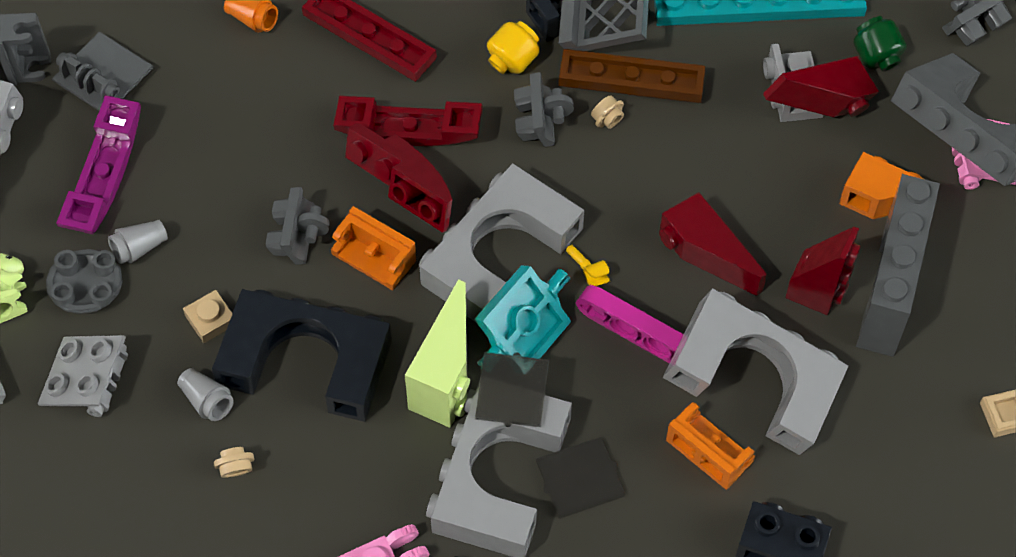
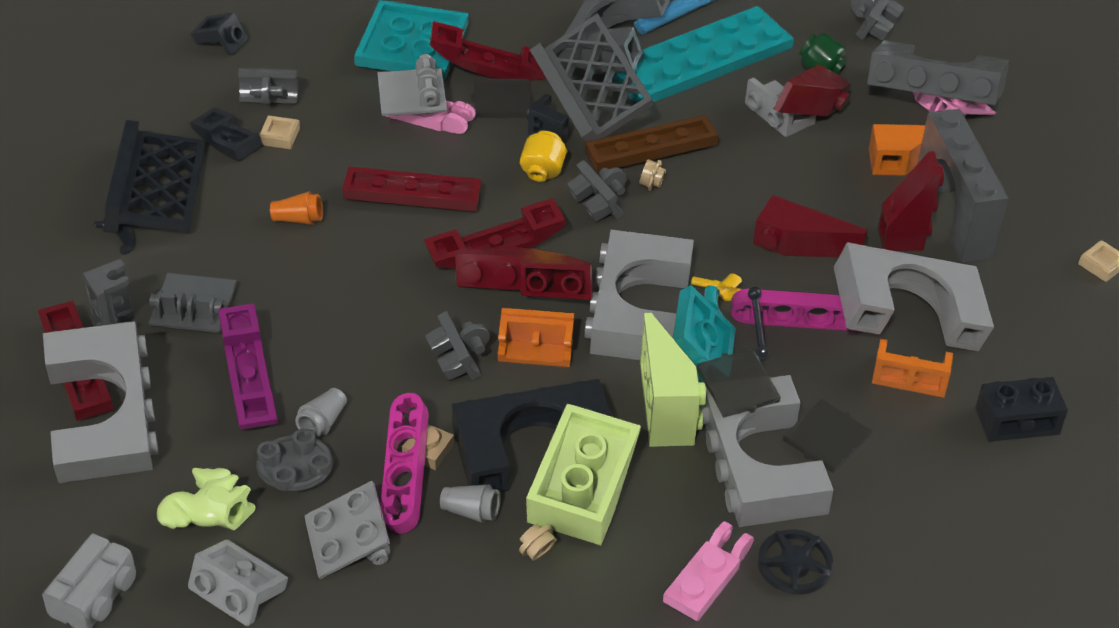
camera: 30 degrees left, 15 degrees down
(174, 329) = (401, 462): none -> dark pink beam
(307, 416) = (582, 474): none -> yellowish green slope
(579, 359) = (762, 351): none -> black hinge

